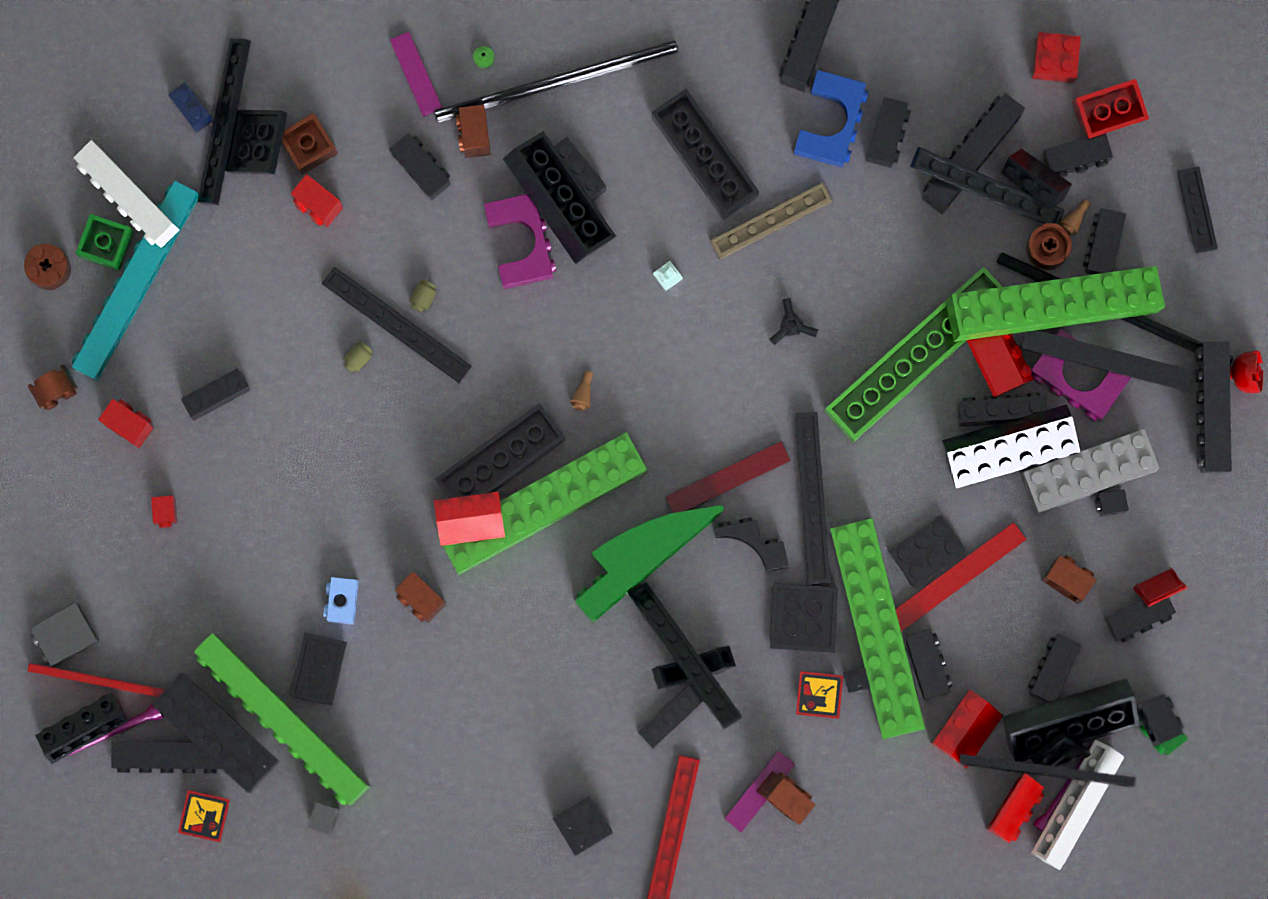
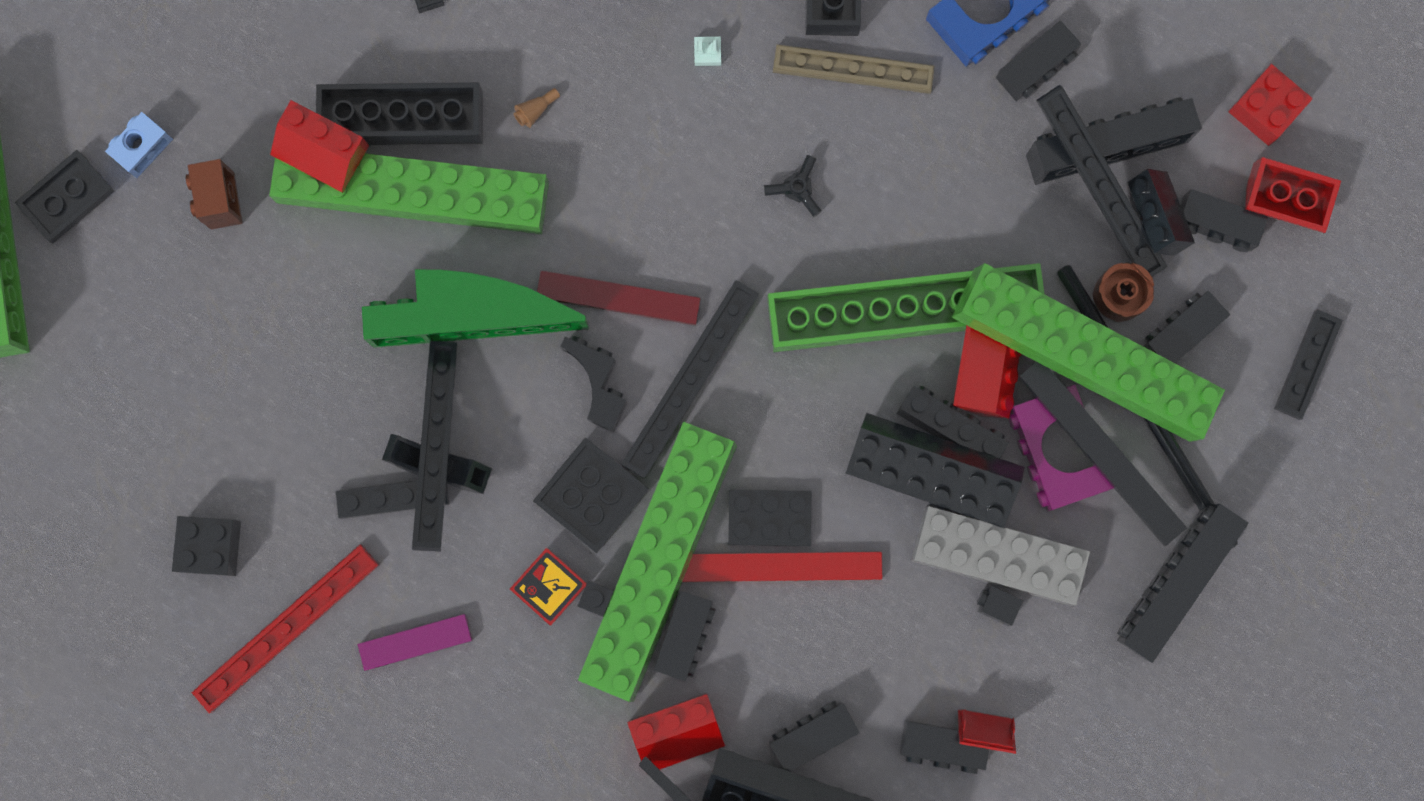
camera: 35 degrees right, 0 degrees up
(789, 800) = (432, 669): copper brick -> none
(1069, 579) = (897, 654): copper brick -> none
(1073, 221) = (1168, 284): medium nougat cone -> none
(1247, 372) = (1242, 570): red cylinder -> none

